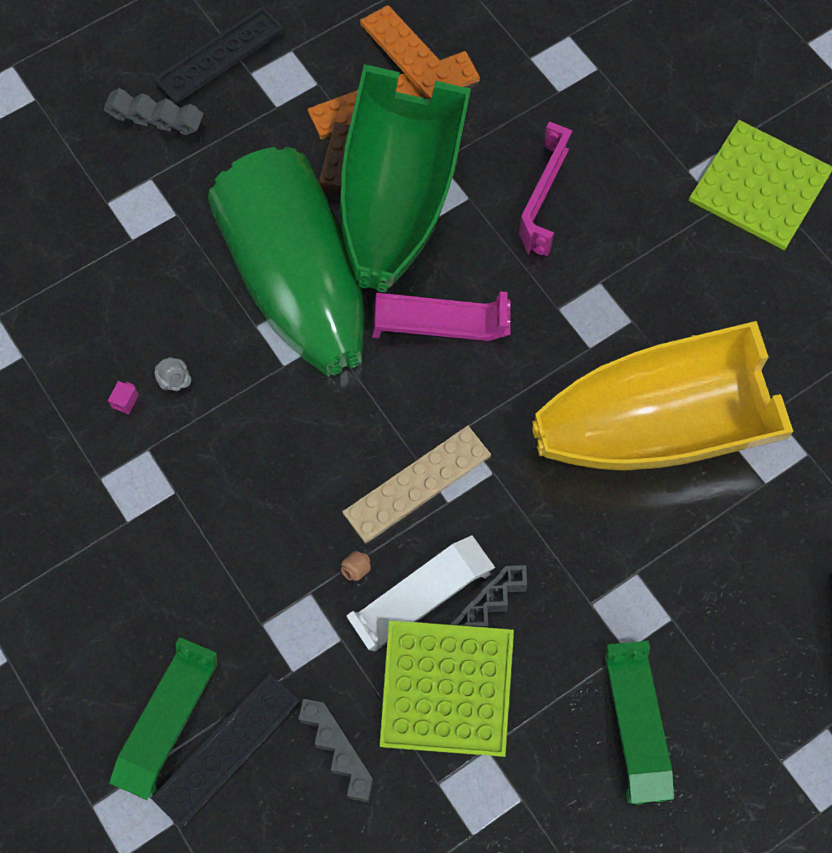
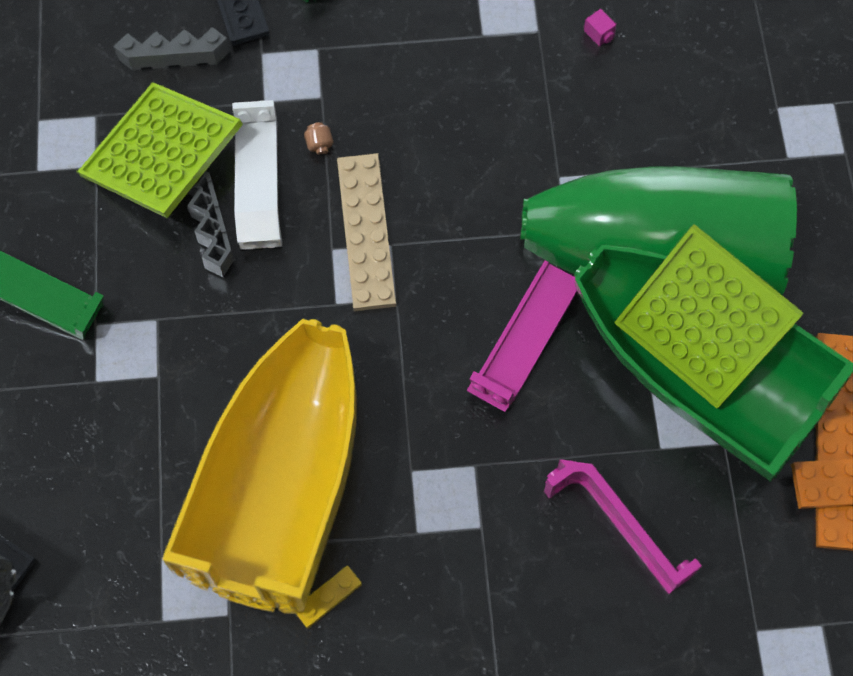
camera: 120 degrees right, 0 degrees up
(172, 374) = (599, 71): light grey hair -> none
(372, 180) = (707, 316): none -> lime plate

